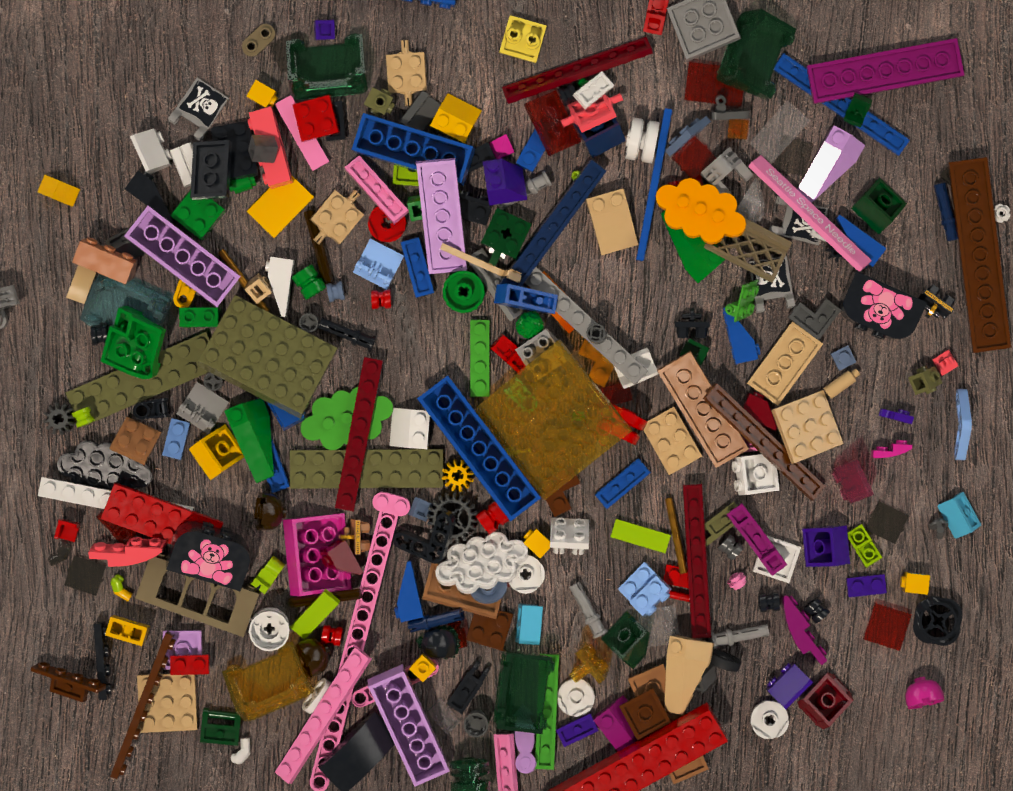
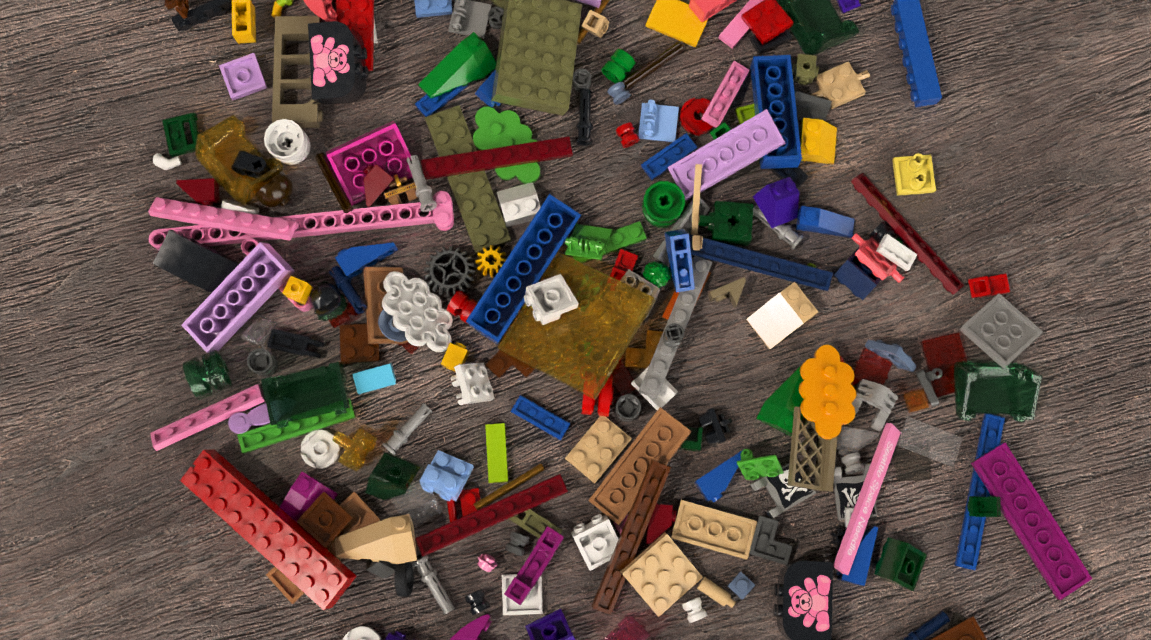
camera: 70 degrees right, 10 degrees down
(140, 712) = (173, 56): reddish brown plate -> none
(173, 704) = (190, 81): tan plate -> none
(189, 664) = (230, 85): red plate -> none
(217, 452) = (433, 41): yellow slope -> none
(268, 575) = (337, 126): lime leg -> none
(269, 511) = (396, 105): dark brown cylinder -> none
(276, 673) = (249, 165): none -> black piece
(280, 275) = (606, 44): white slope -> none
(286, 727) = (201, 190): none -> dark red slope
(315, 614) = (315, 178): lime tile -> none
(336, 217) = (686, 70): tan plate -> none
(336, 635) = (301, 202): red wheel -> none
(369, 516) = (423, 191): none -> light grey pin
(420, 509) = (447, 238): sand blue plate -> none
(431, 545) = (419, 259): black beam -> none
(474, 209) = (742, 185): black bracket -> none
(474, 377) = (588, 241): none -> bright green hinge
(501, 147) = (809, 192): dark pink slope -> none
(520, 435) = (550, 299): none -> white plate
(533, 581) = (418, 368): white plate -> none
(546, 116) = (852, 219): clear red tile -> none
(570, 257) = (732, 289): none -> dark tan slope
(577, 730) = (287, 460): dark purple plate -> none
(642, 140) = (869, 313): white wheel -> none
(645, 400) = (627, 408): none -> dark grey wheel
(653, 184) = (833, 341): blue tile -> none
(773, 212) = (852, 463): none -> light grey wheel
(832, 160) = (926, 502): lavender wedge -> none
(849, 409) = (694, 610): none -> white wheel

